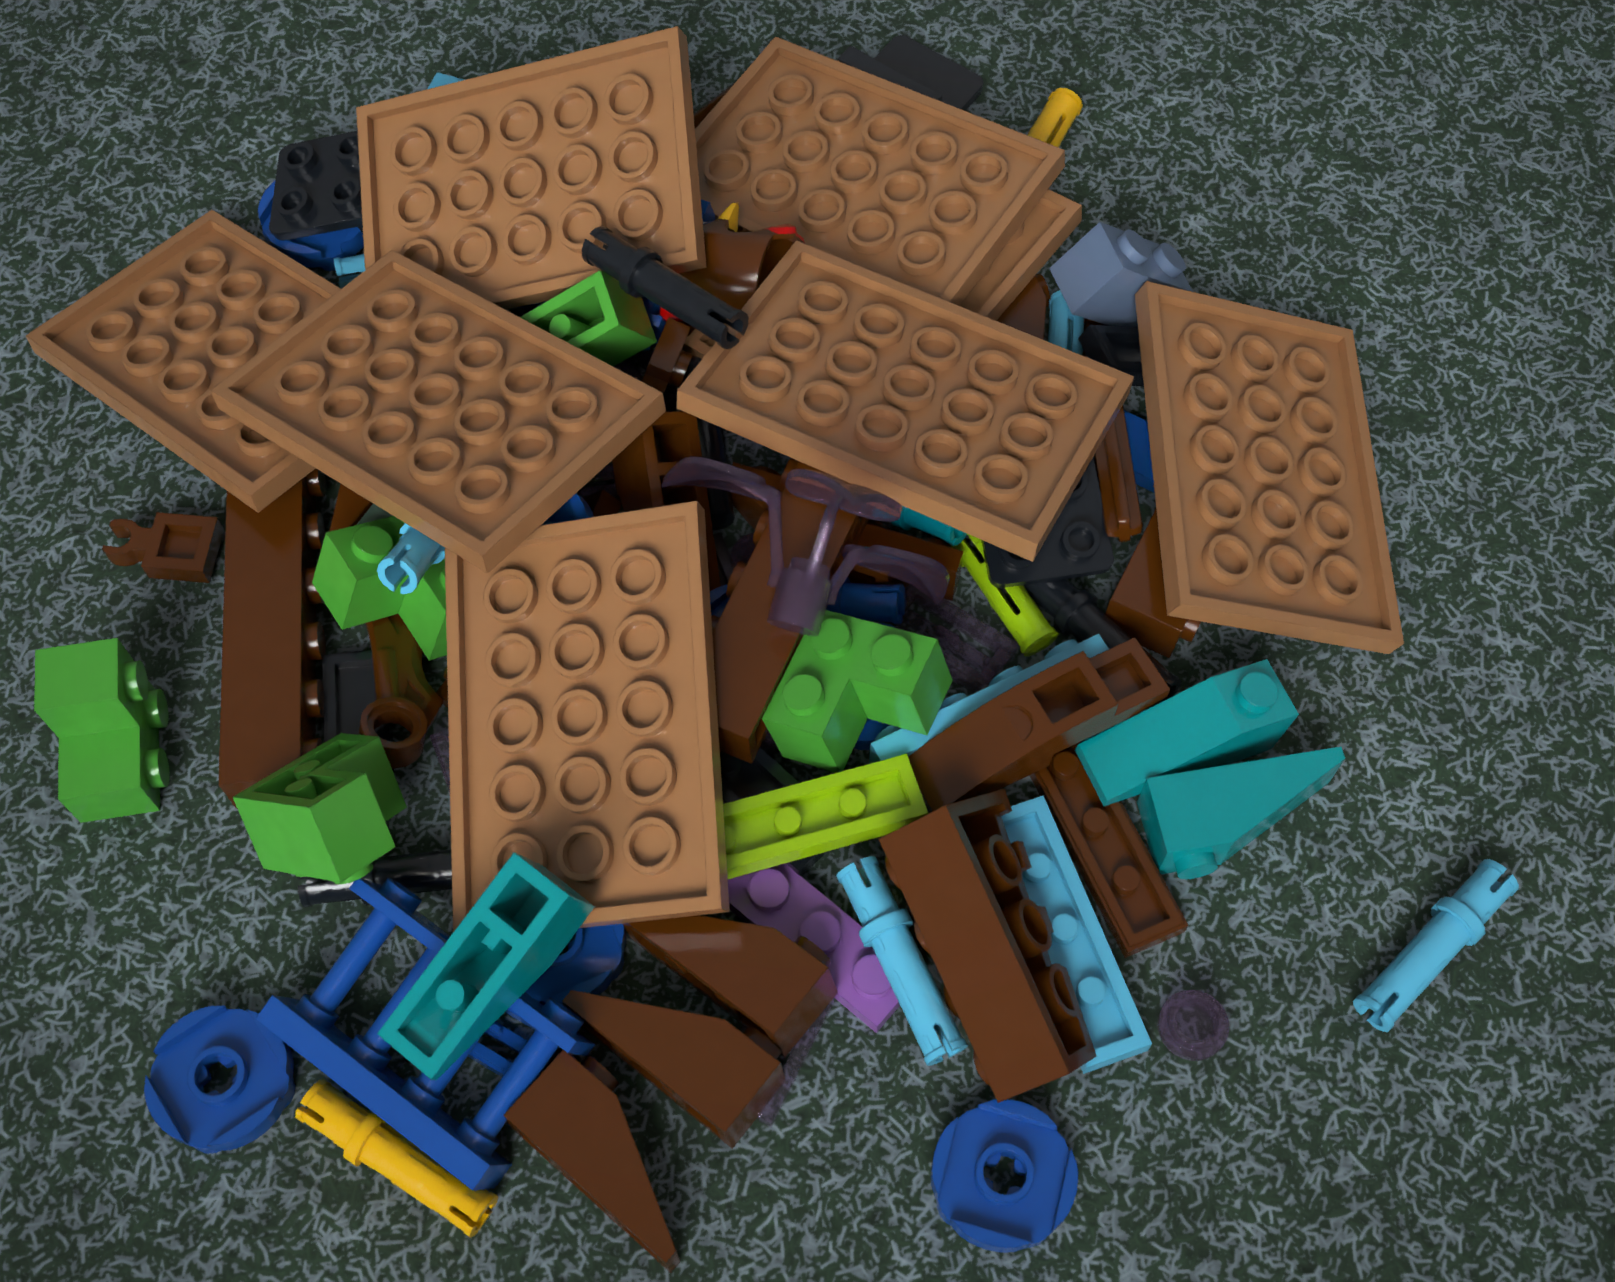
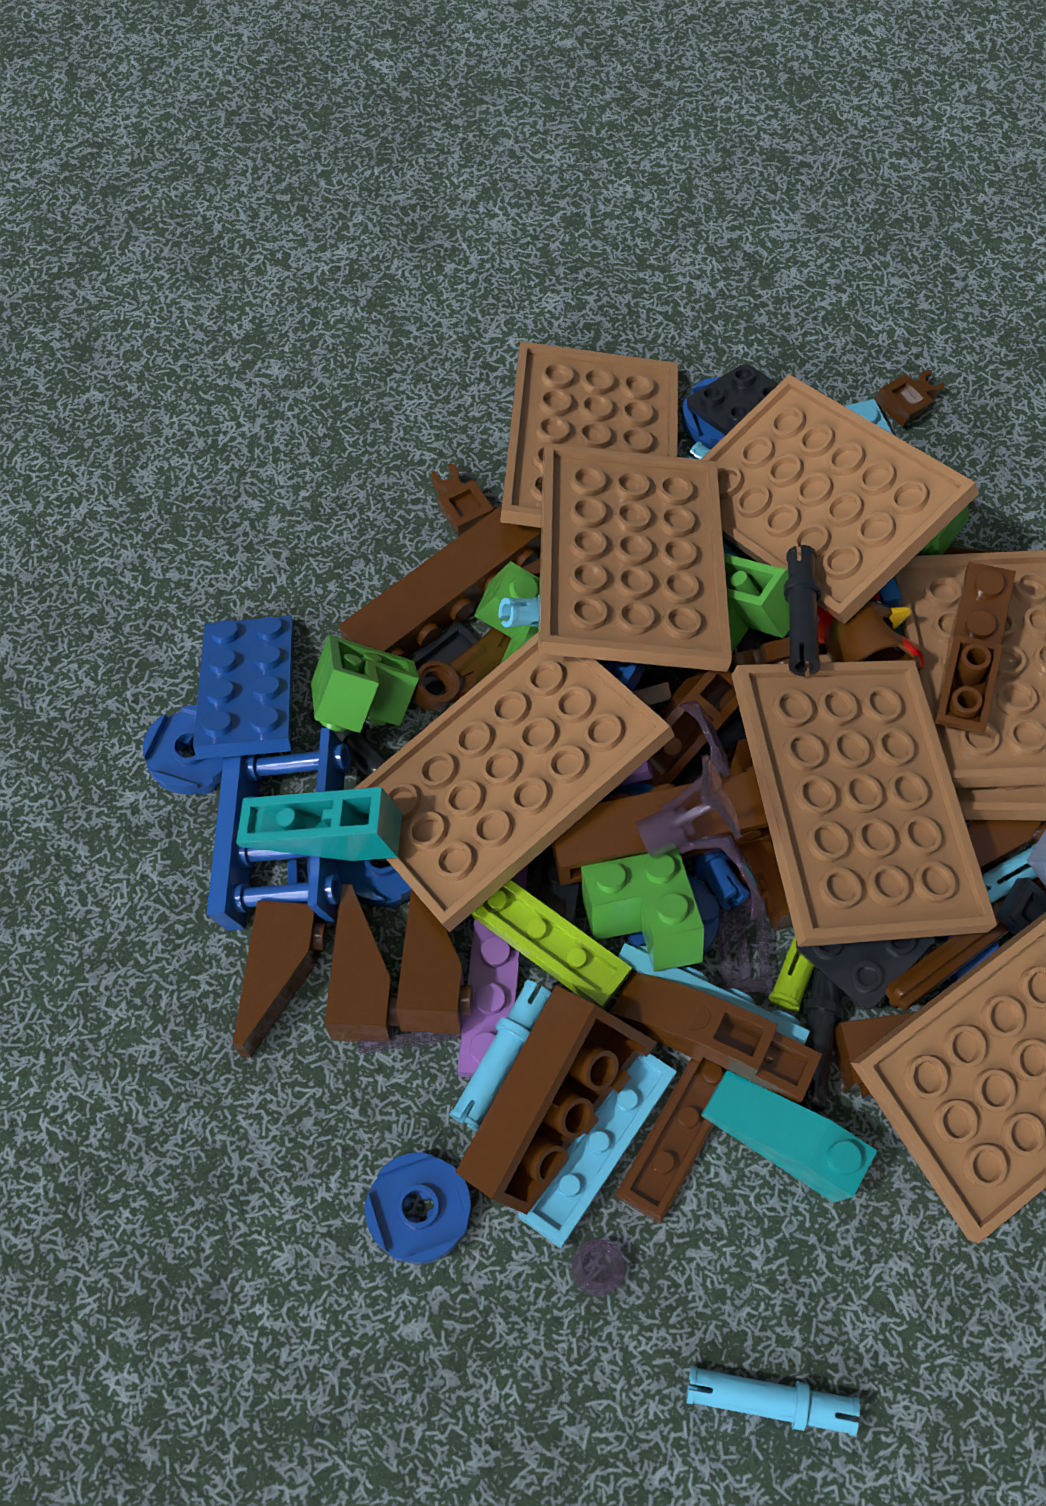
camera: 55 degrees right, 0 degrees up
(105, 728) = (333, 552): bright green brick -> none
(202, 950) = (245, 688): none -> blue plate
(382, 1148) = (202, 847): yellow pin -> none
(465, 43) = (908, 398): none -> reddish brown plate
(827, 185) = (975, 648): none -> reddish brown slope
(1214, 812) = (756, 1194): teal slope -> none

